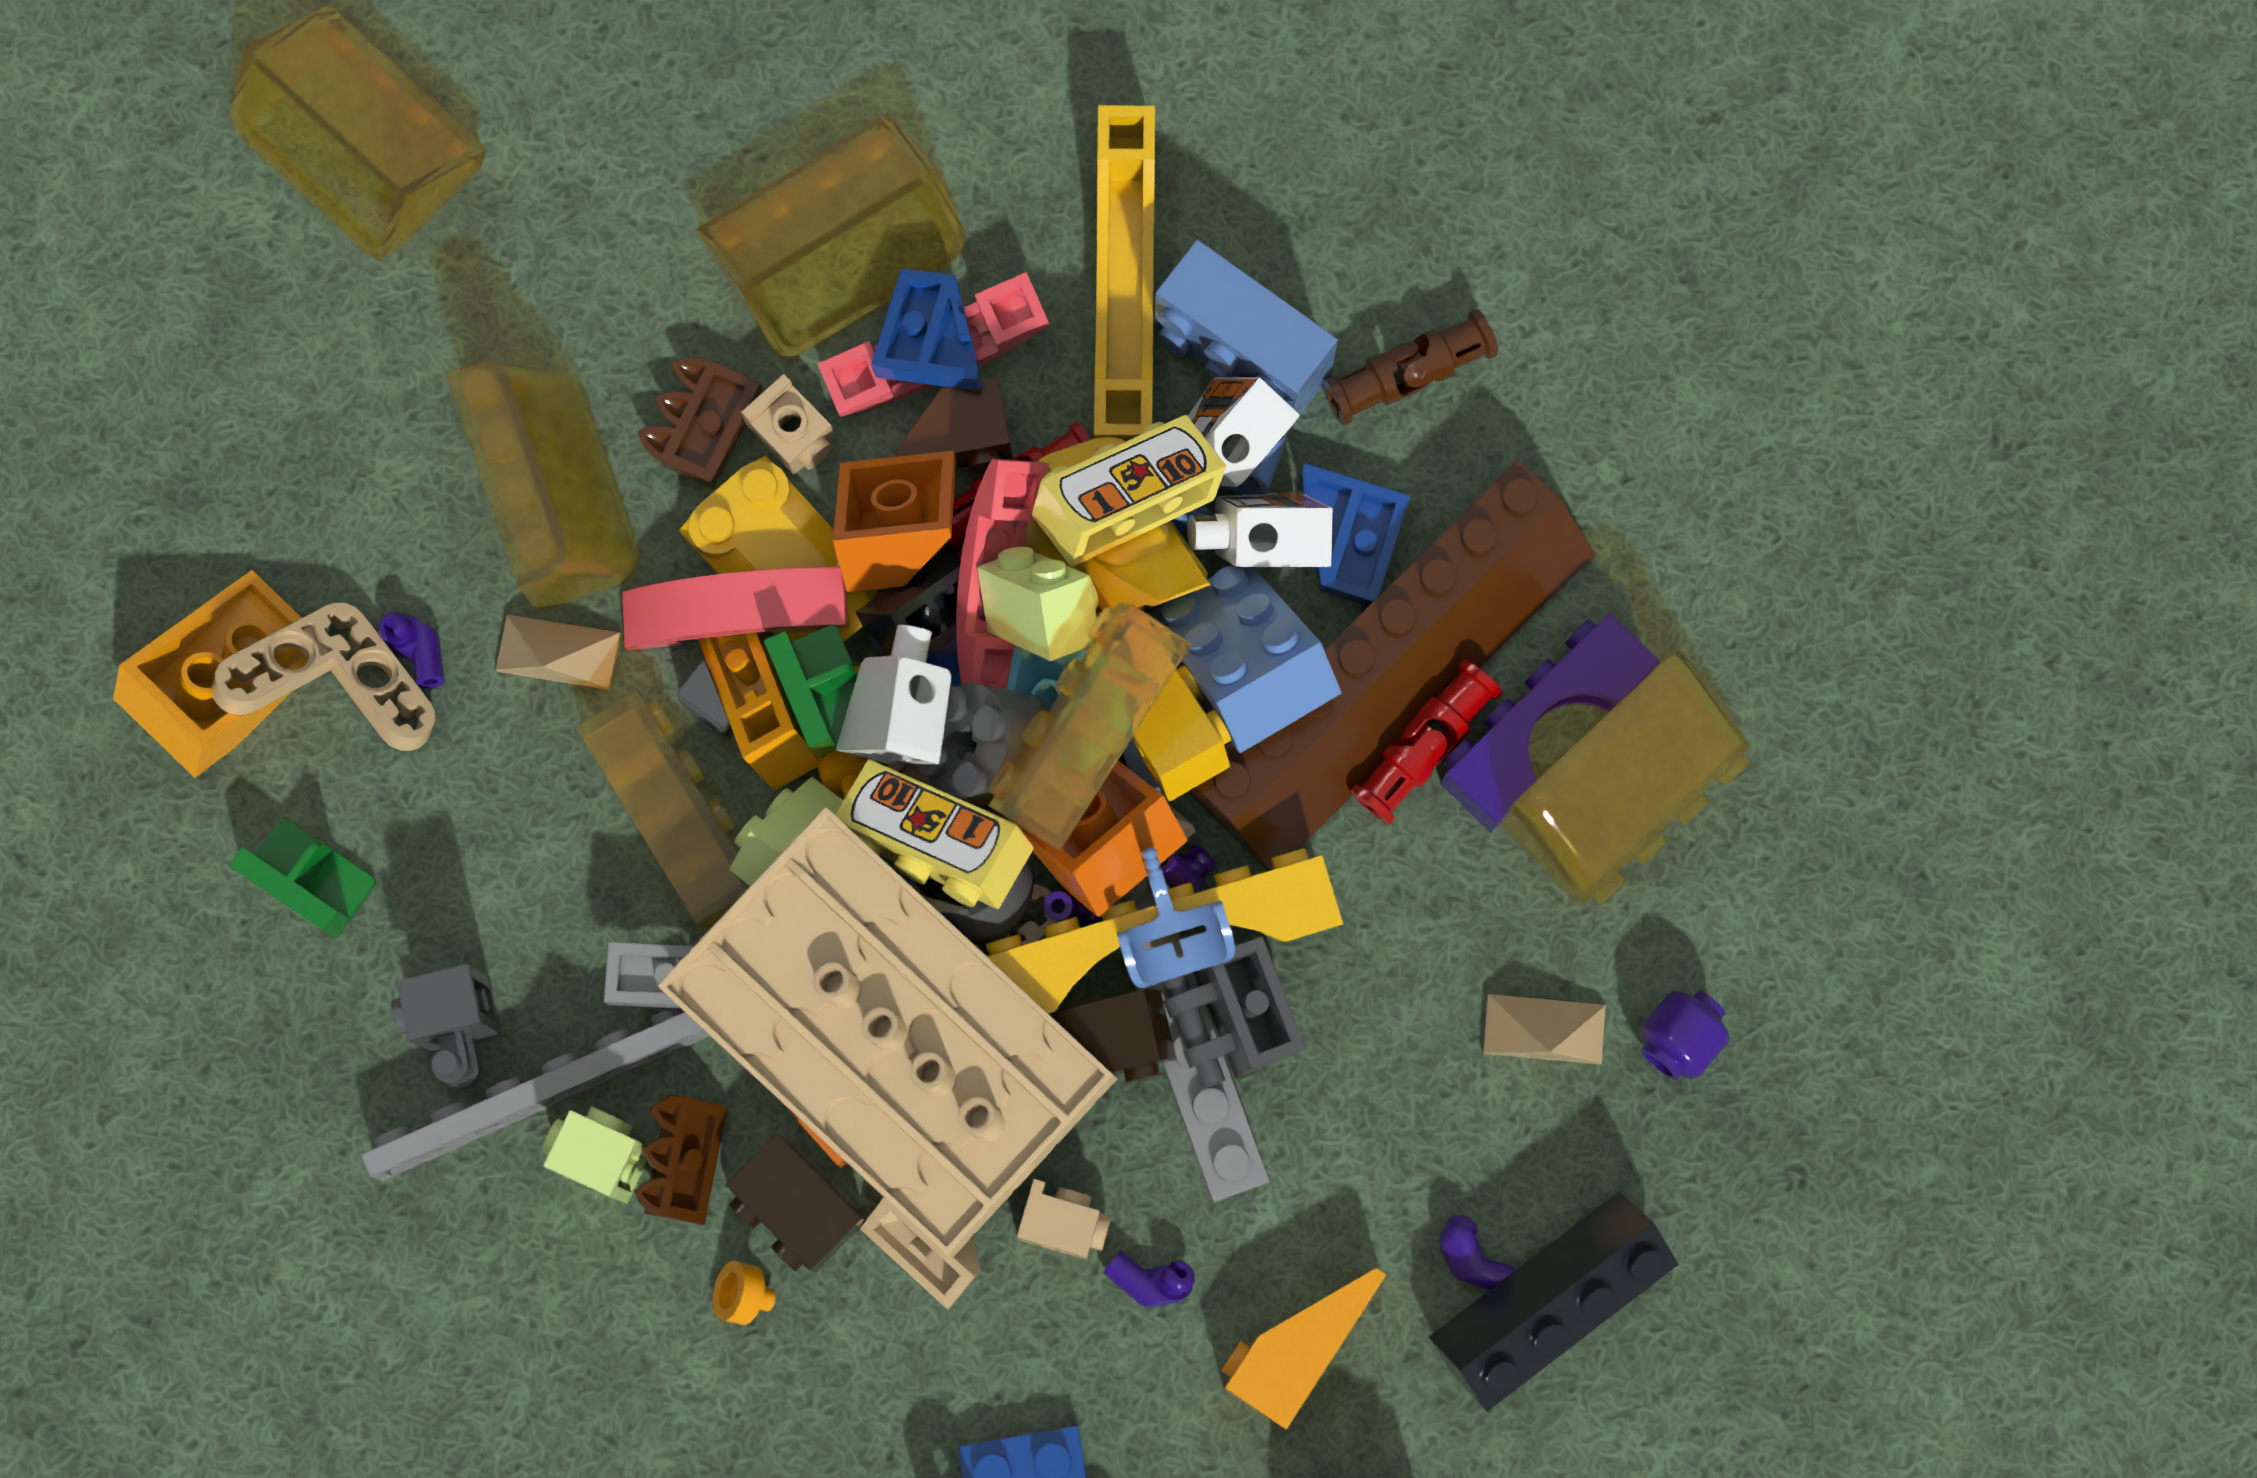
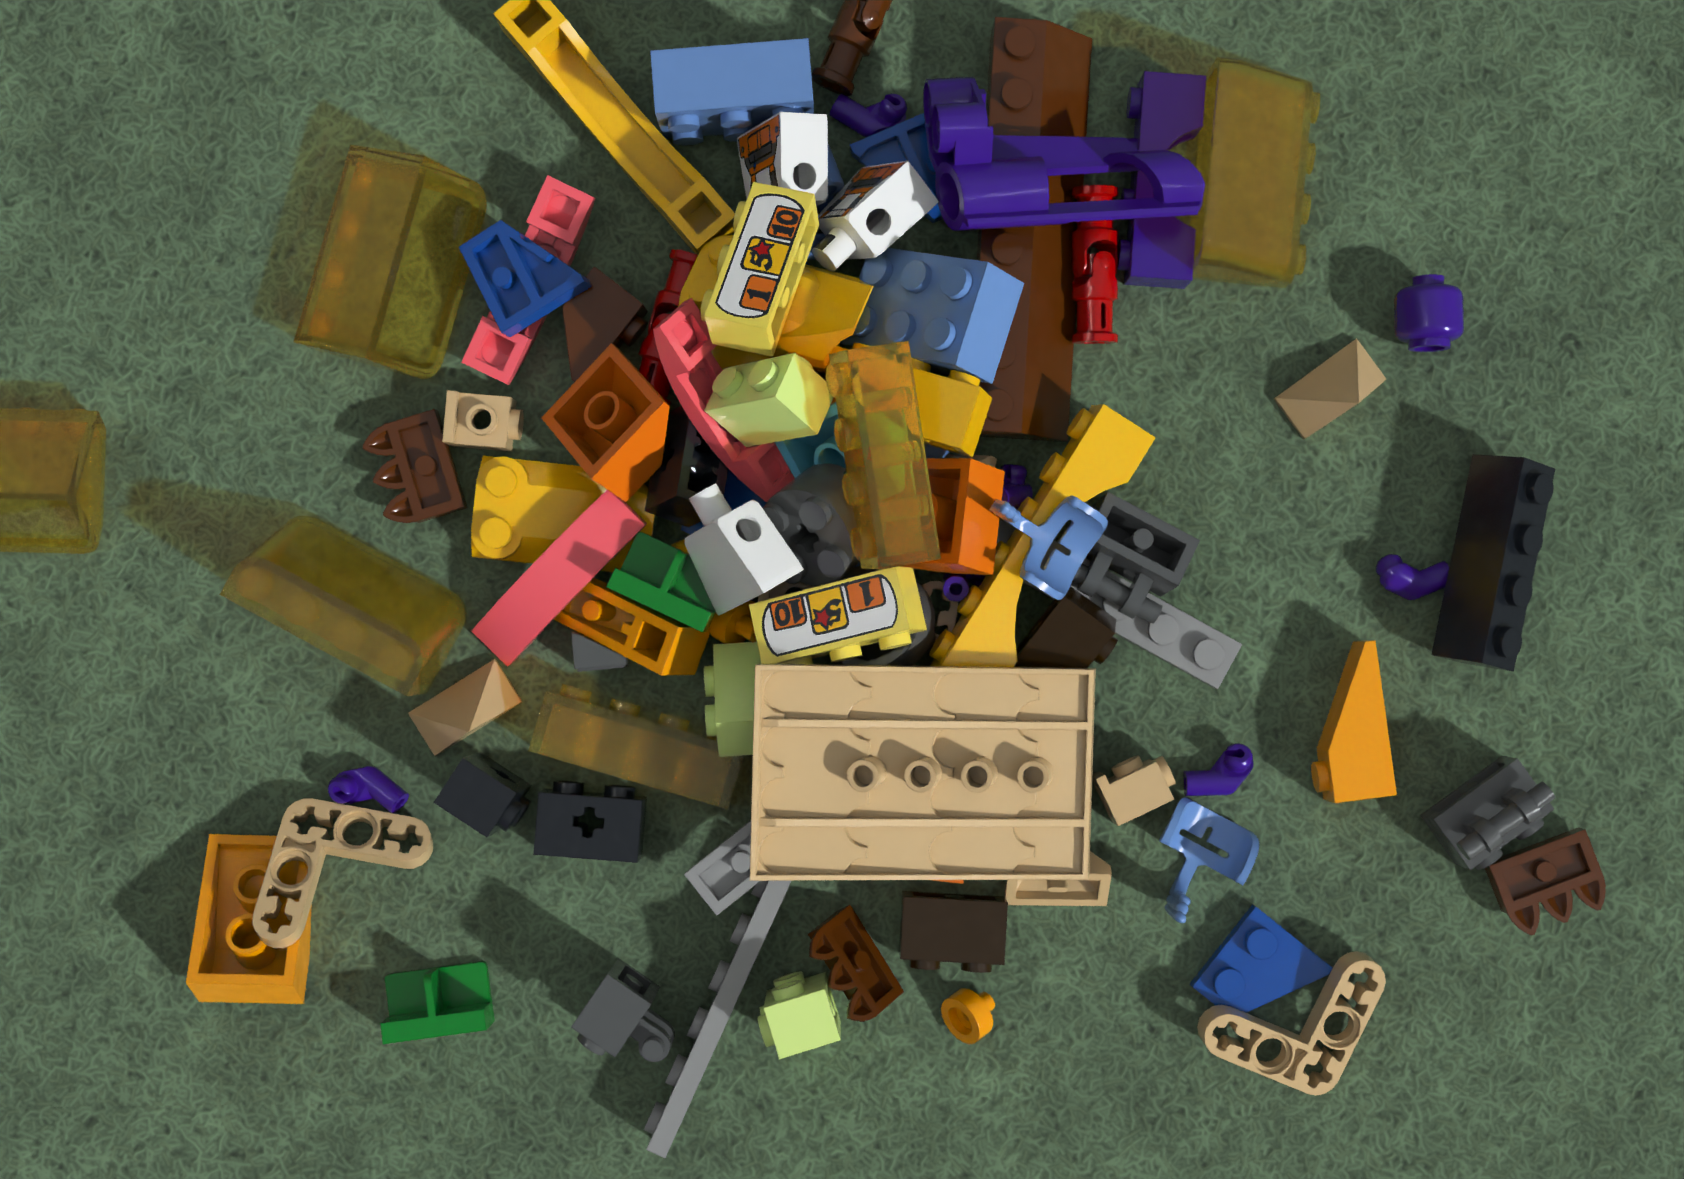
camera: 45 degrees left, 10 degrees up
(506, 731) = (484, 795): none -> black brick
(540, 824) = (562, 834): none -> black brick
(1094, 1303) = (1237, 841): none -> medium blue helmet
(1344, 459) = (872, 118): none -> dark purple arm
(1397, 589) = (1004, 178): none -> dark purple panel

